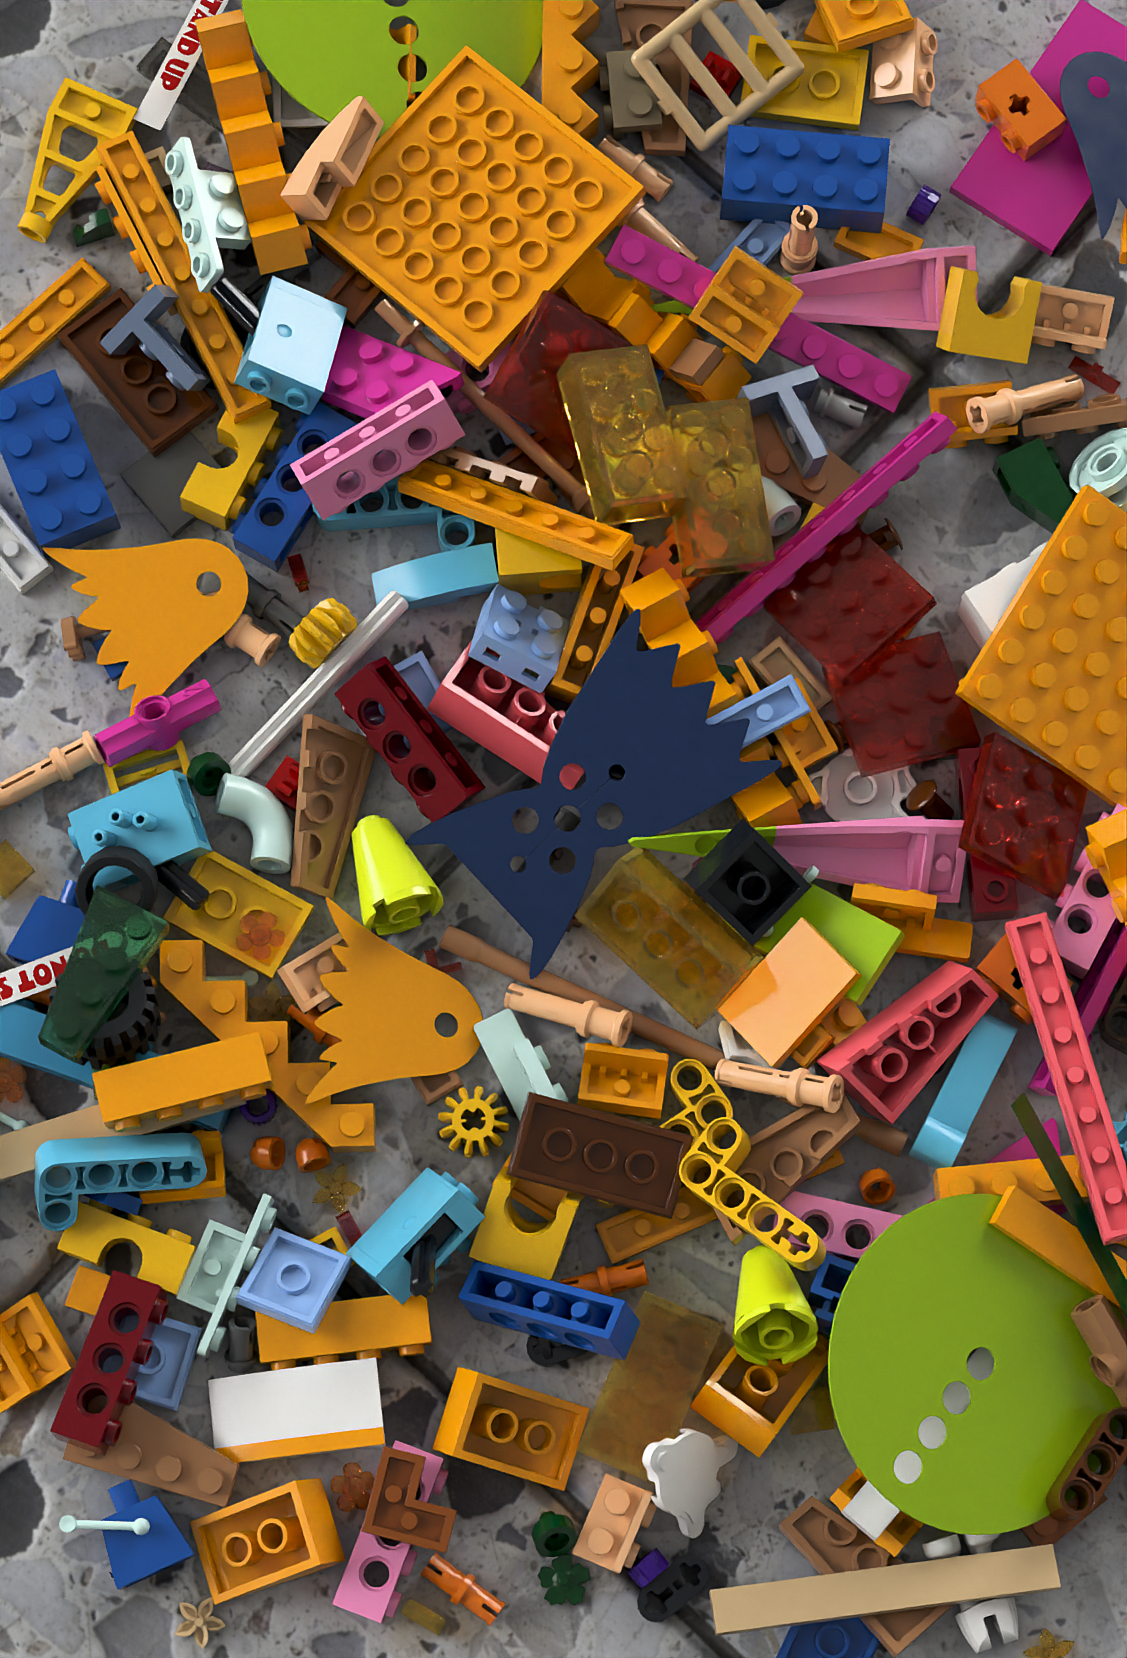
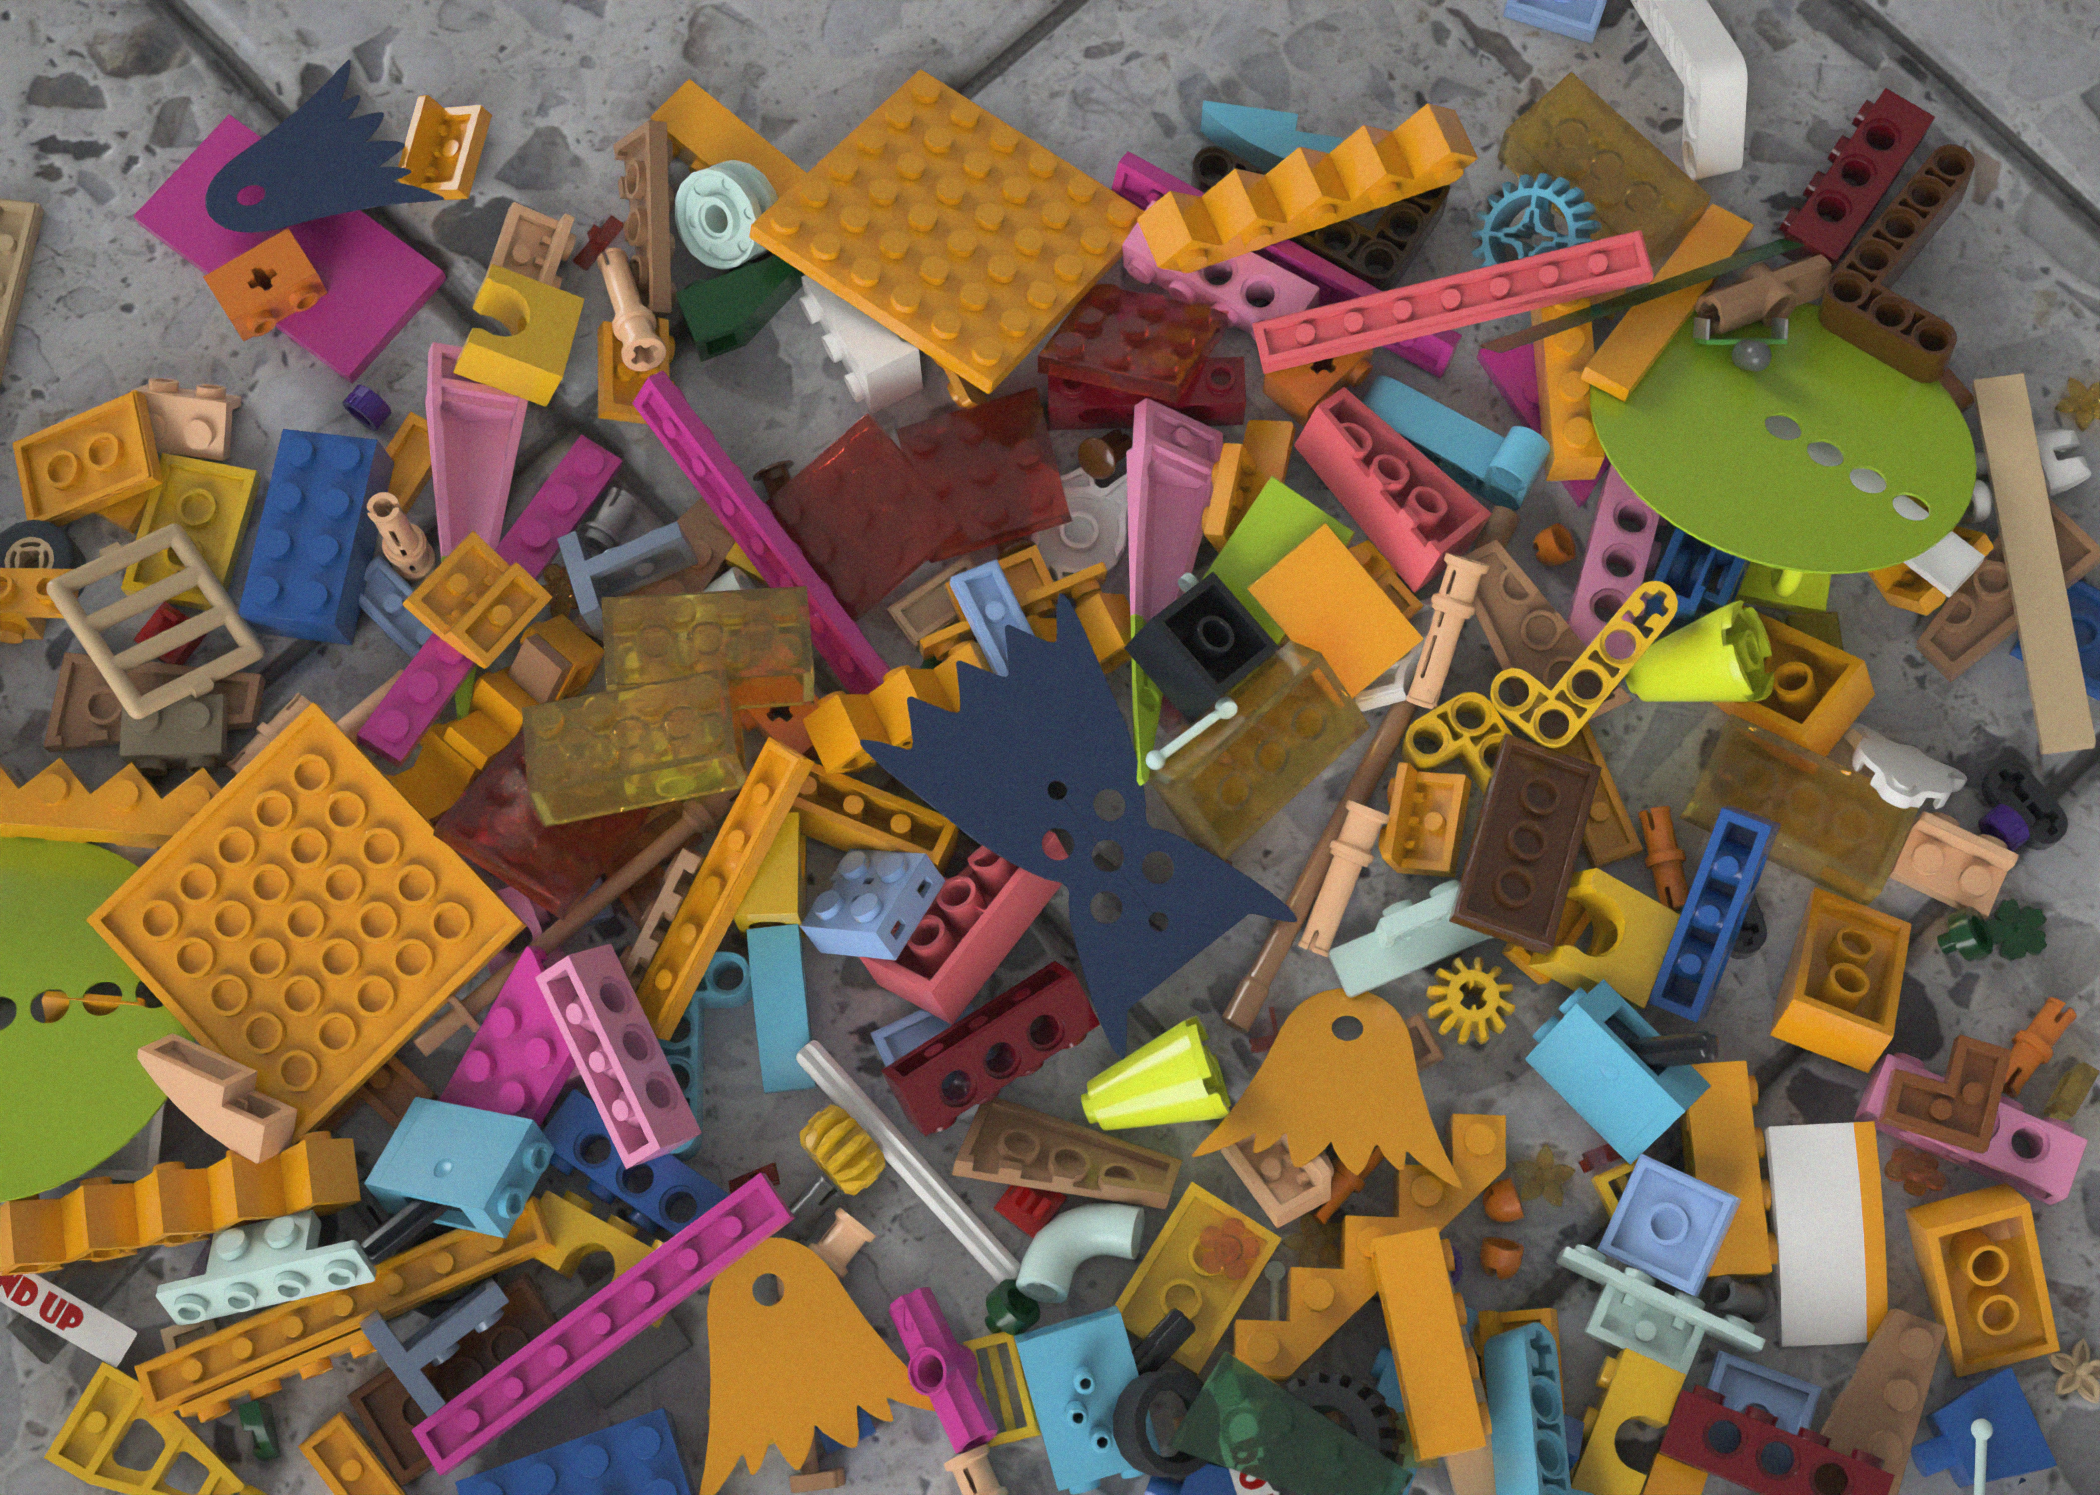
camera: 85 degrees left, 5 degrees down
(175, 463) = (602, 1324): none -> dark pink plate
(691, 900) = (1224, 708): none -> light aqua hinge
(770, 368) = (560, 589): none -> clear orange plant
(1053, 1336) = (1749, 352): none -> piece

